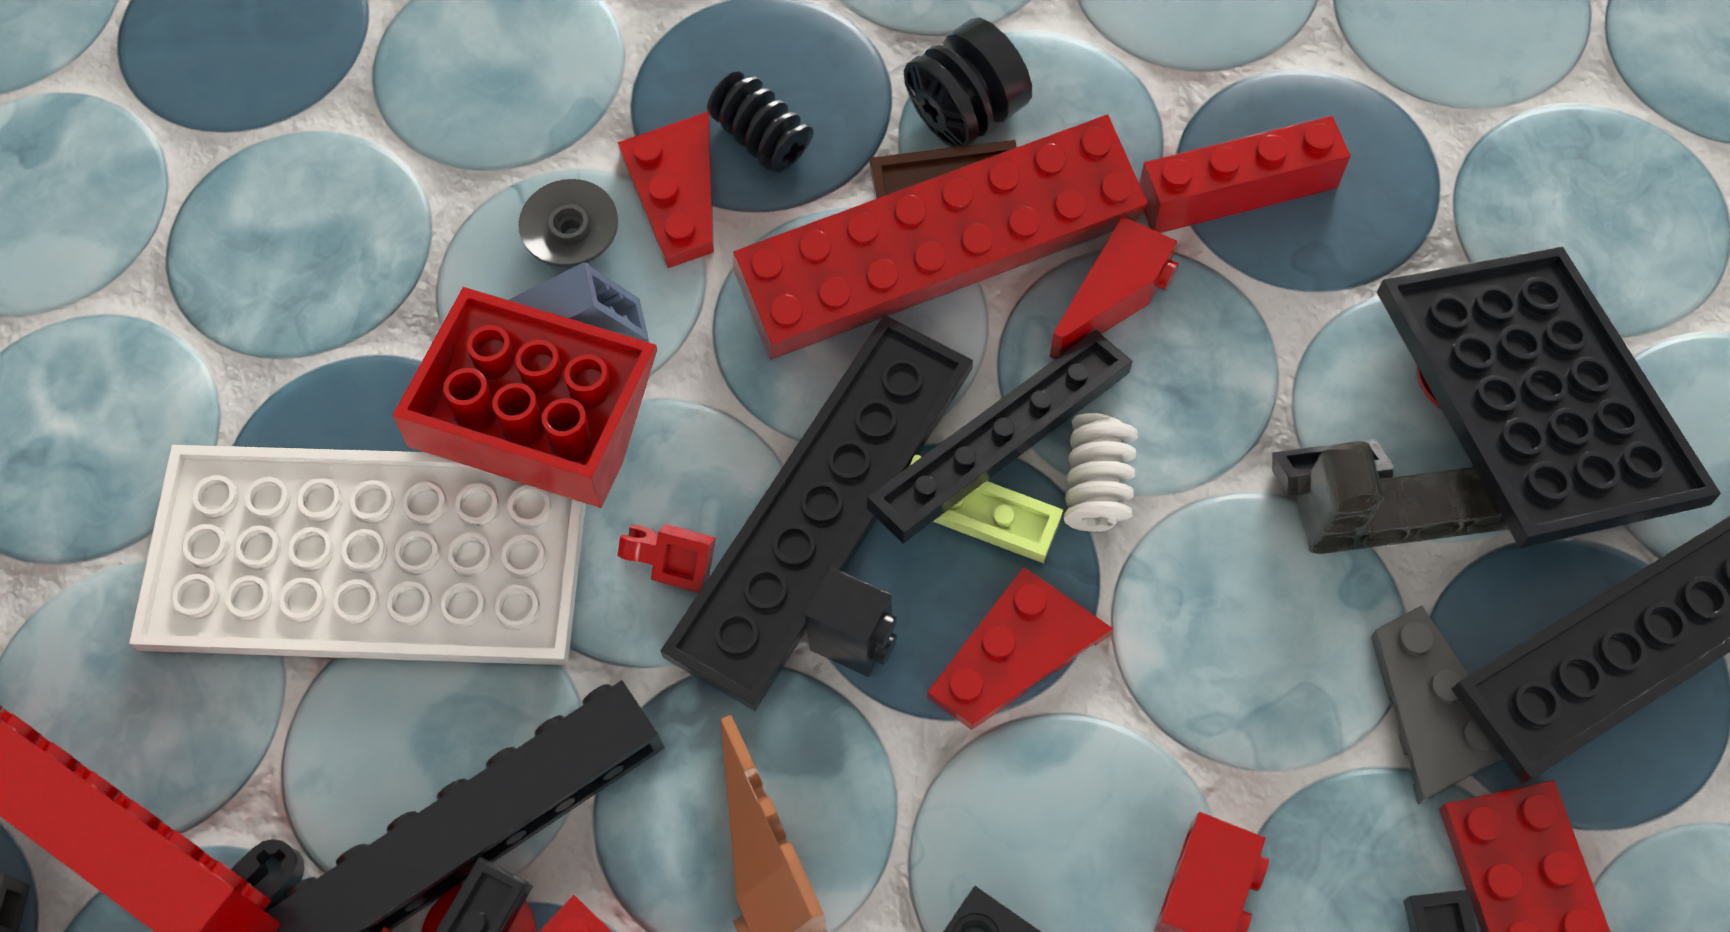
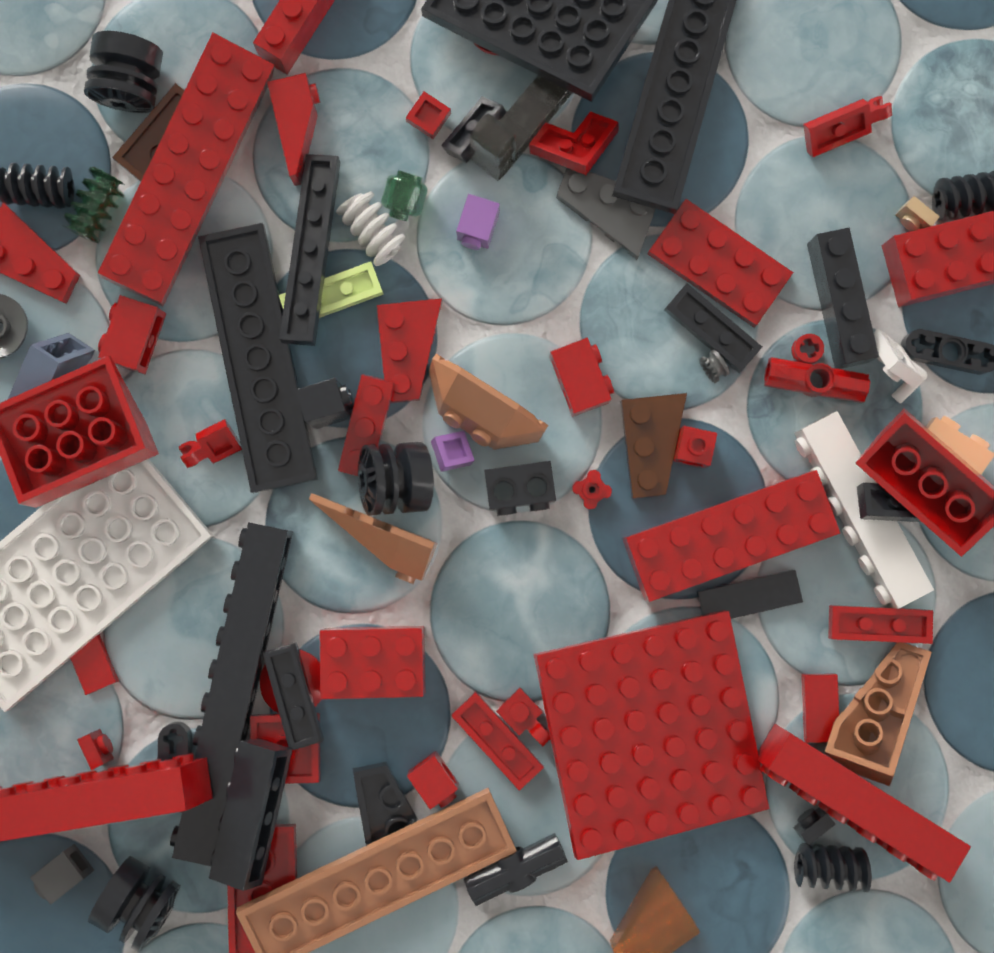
camera: 45 degrees left, 20 degrees up
(175, 789) = (96, 748): none -> red plate
(278, 690) = (94, 666): none -> red tile
(706, 356) = (131, 334): none -> red brick
(801, 189) = (93, 204): none -> clear green piece
(860, 797) = (395, 478): none -> black wheel
(874, 699) = (366, 420): none -> red plate
(955, 827) = (452, 451): none -> medium lavender plate
(1043, 809) = (481, 409): none -> nougat wedge
(1174, 469) = (404, 195): none -> clear green head
(1241, 576) = (477, 222): none -> medium lavender brick
(1286, 406) = (428, 115): none -> red plate
(1451, 597) = (577, 149): none -> red plate

